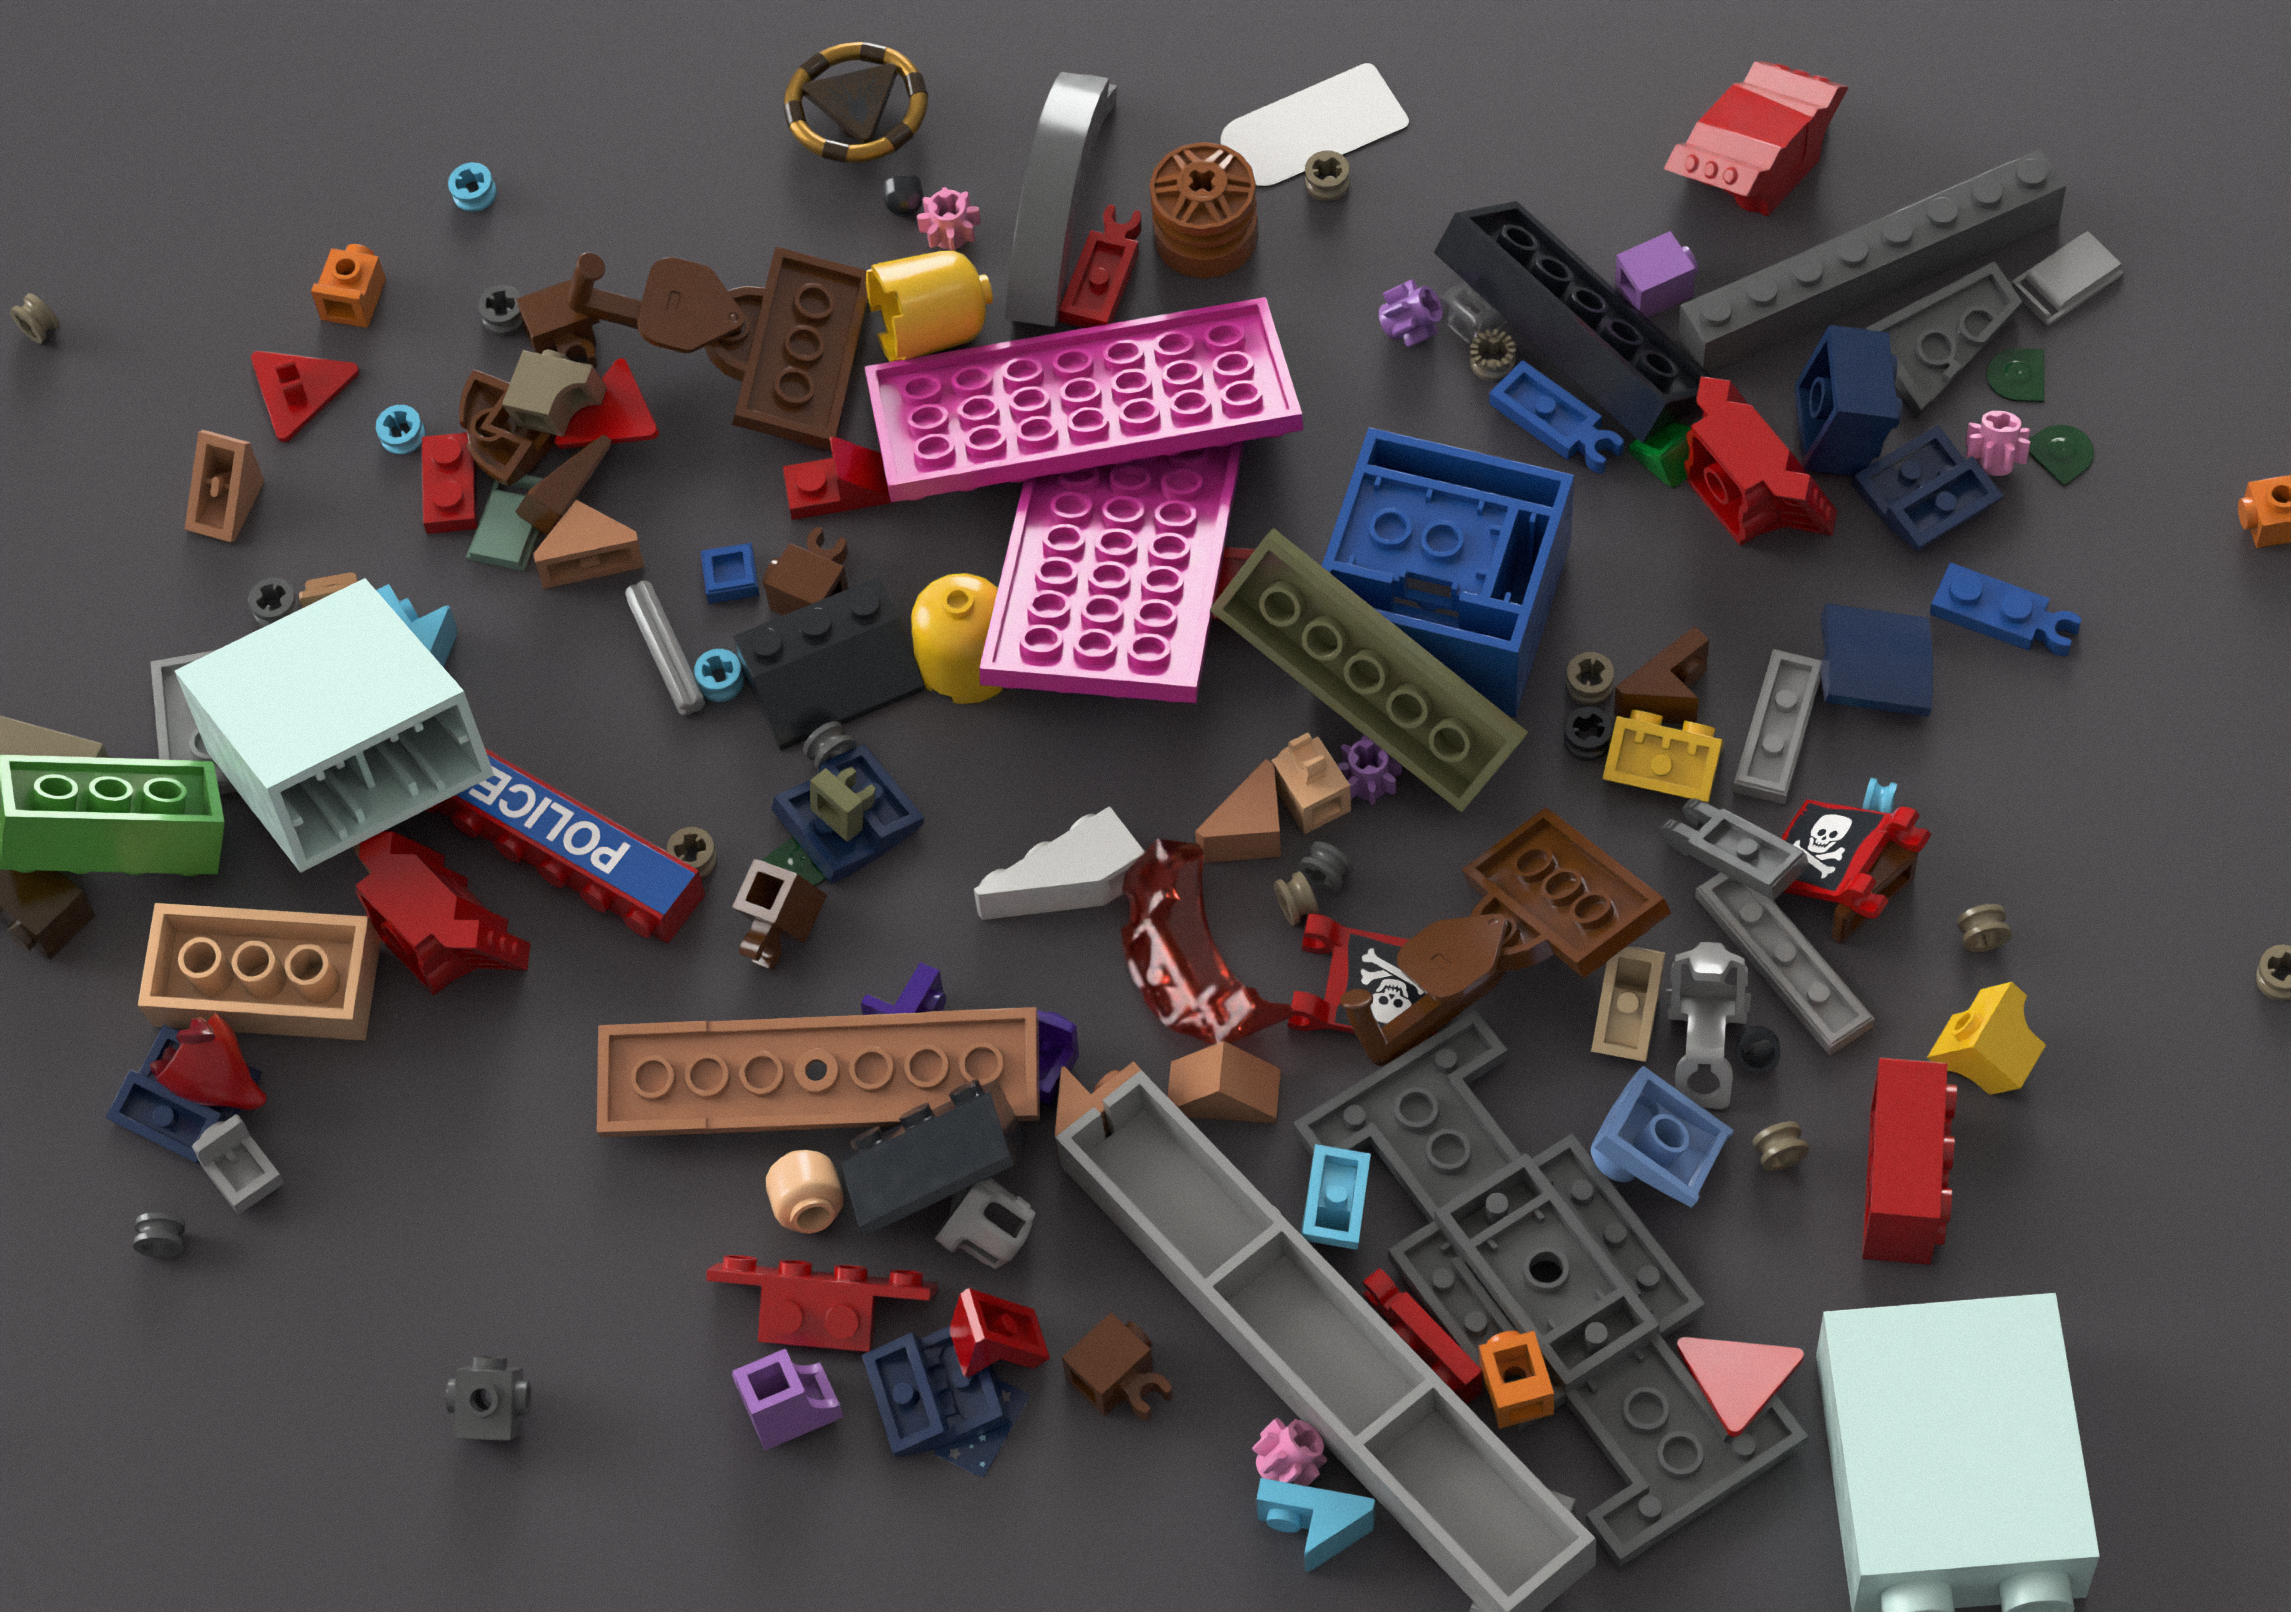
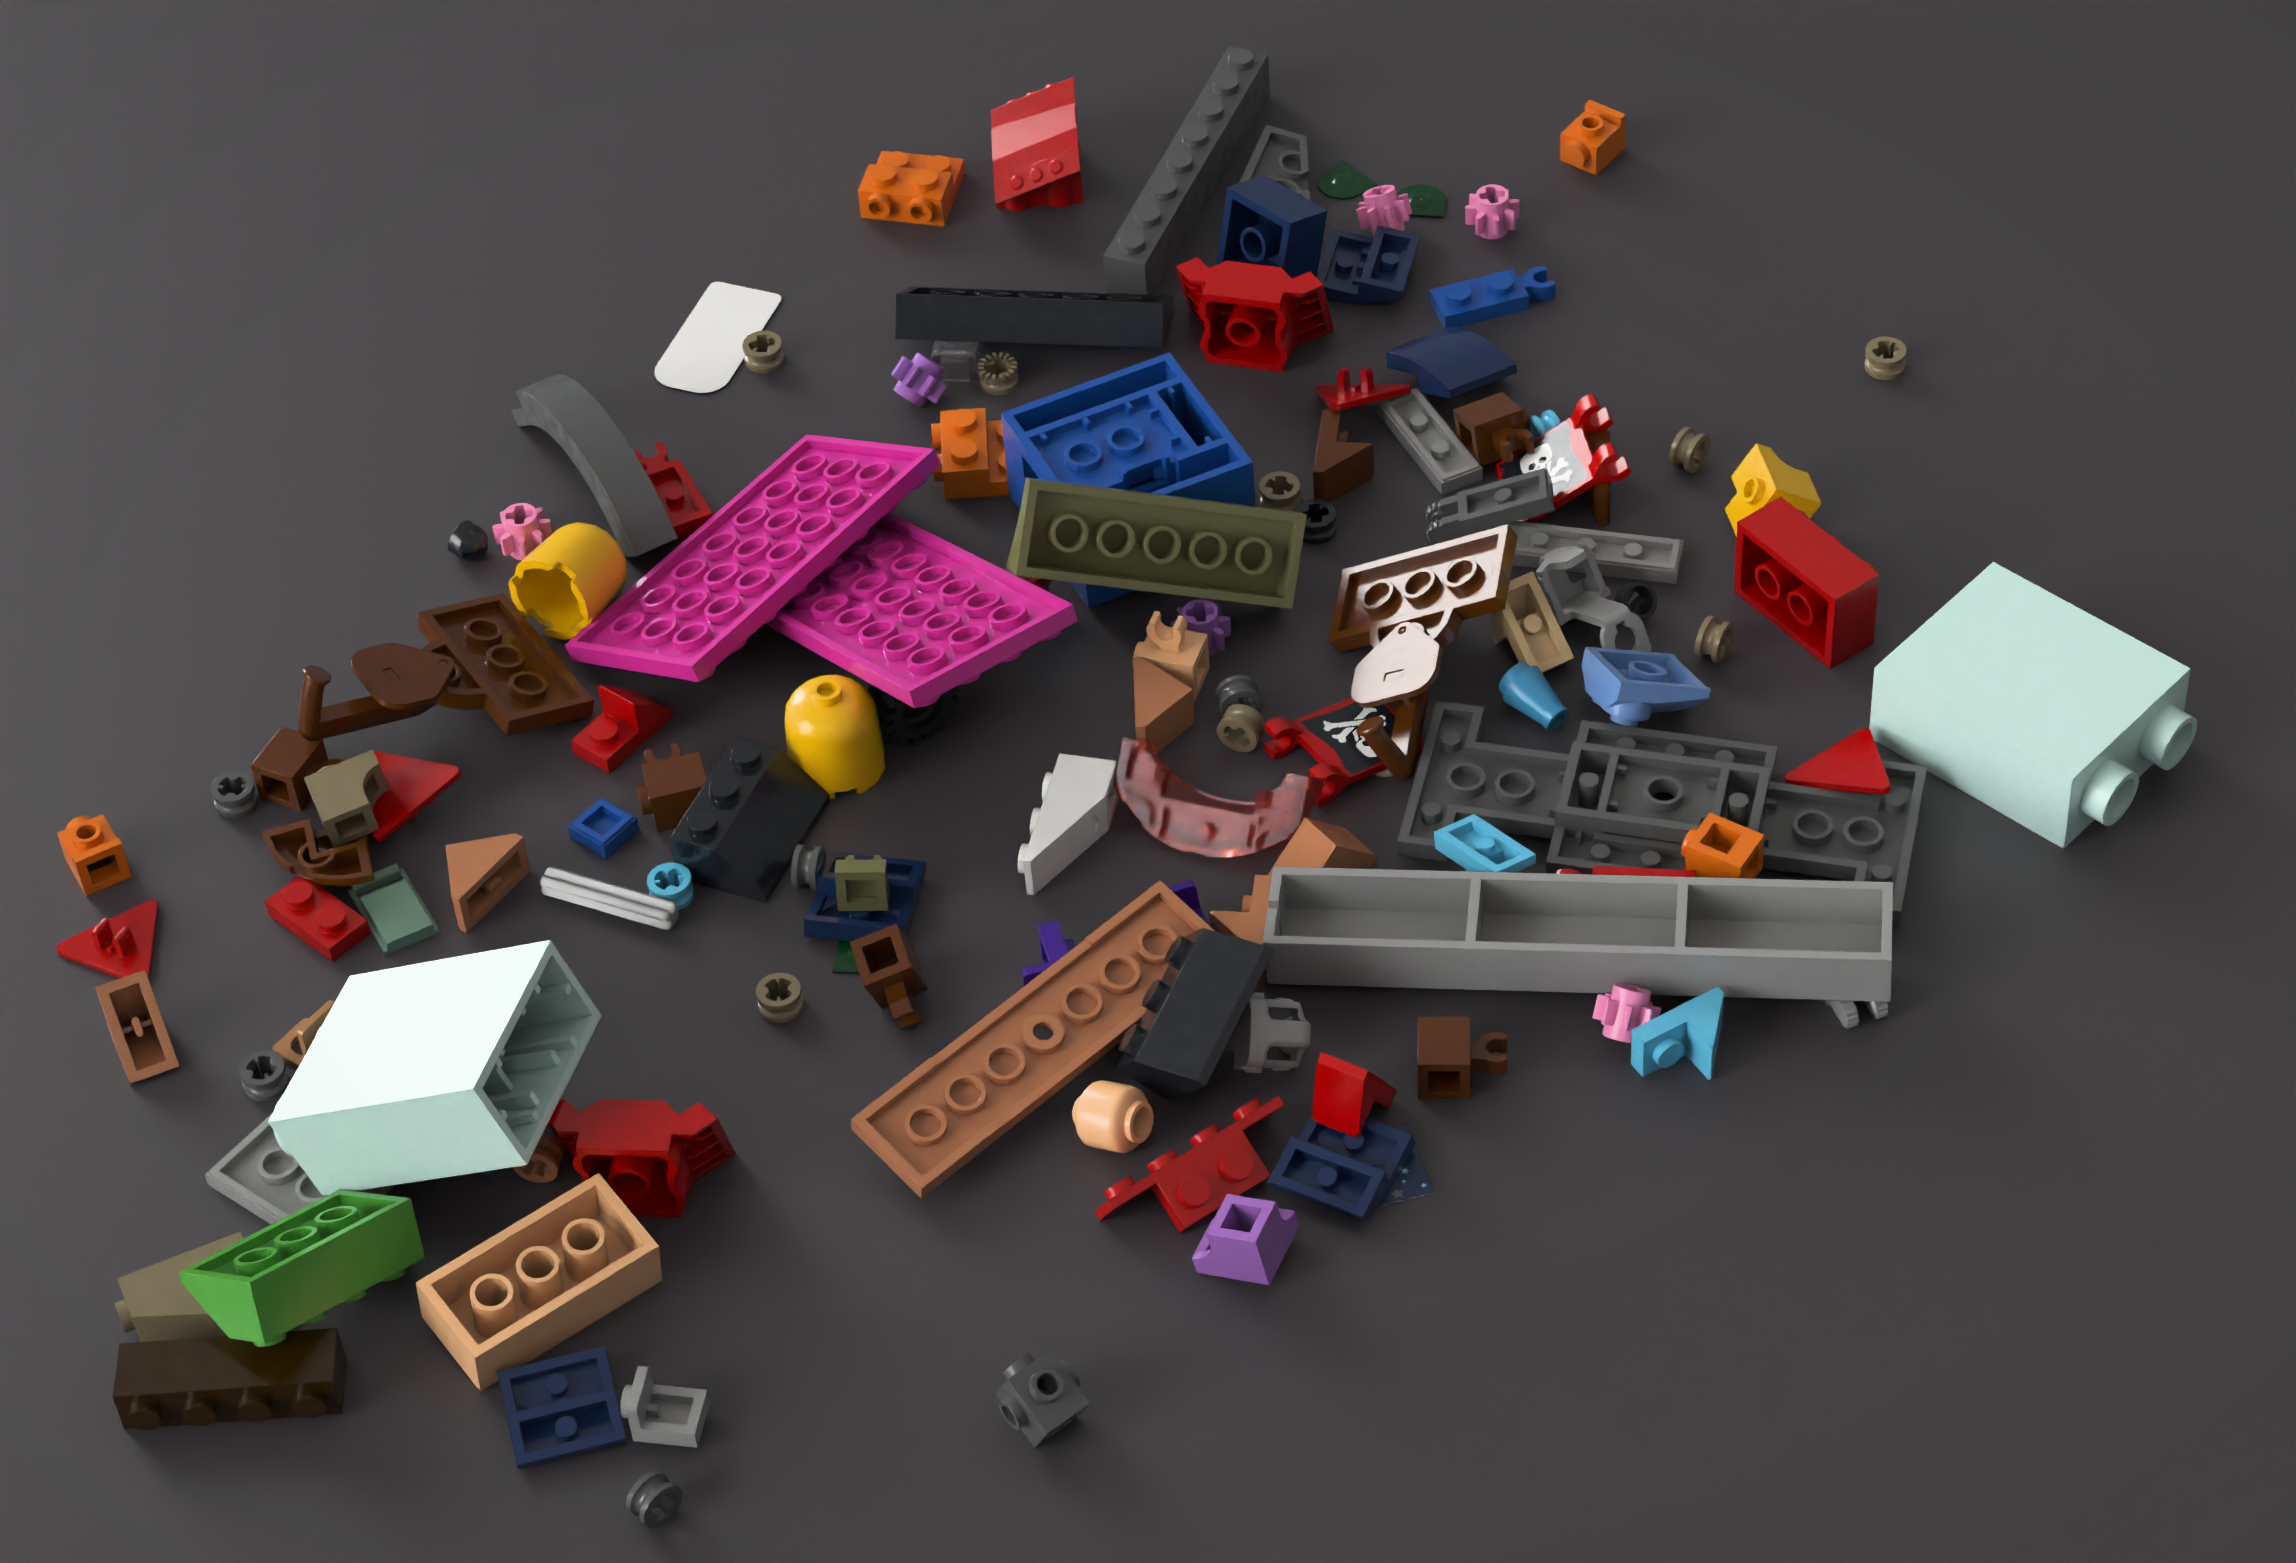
camera: 45 degrees left, 15 degrees down
(209, 1067) = (574, 1359): red hat -> none
(393, 417) = (234, 900): medium azure bush -> none
(472, 173) = (117, 732): medium azure bush -> none
(553, 495) = (422, 854): reddish brown slope -> none
(578, 849) = (697, 1046): brick -> none
(855, 101) = (372, 508): piece -> none
(1204, 210) = (709, 409): dark orange wheel -> none
(1388, 404) = (970, 454): none -> orange plate
(1554, 416) = (1057, 373): blue plate -> none
(1566, 1070) = (1533, 696): none -> dark azure cone
(1629, 87) = (910, 188): none -> orange plate
(1656, 274) = (1056, 261): medium lavender brick -> none
(1663, 757) = (1382, 497): yellow bracket -> none
(1664, 454) = (1184, 346): green slope -> none
(1755, 626) = (1347, 395): none -> red piece
(1830, 765) = (1494, 428): none -> reddish brown brick
(2069, 277) = (1314, 113): light grey piece -> none
(2097, 520) = (1492, 211): none -> bright pink gear

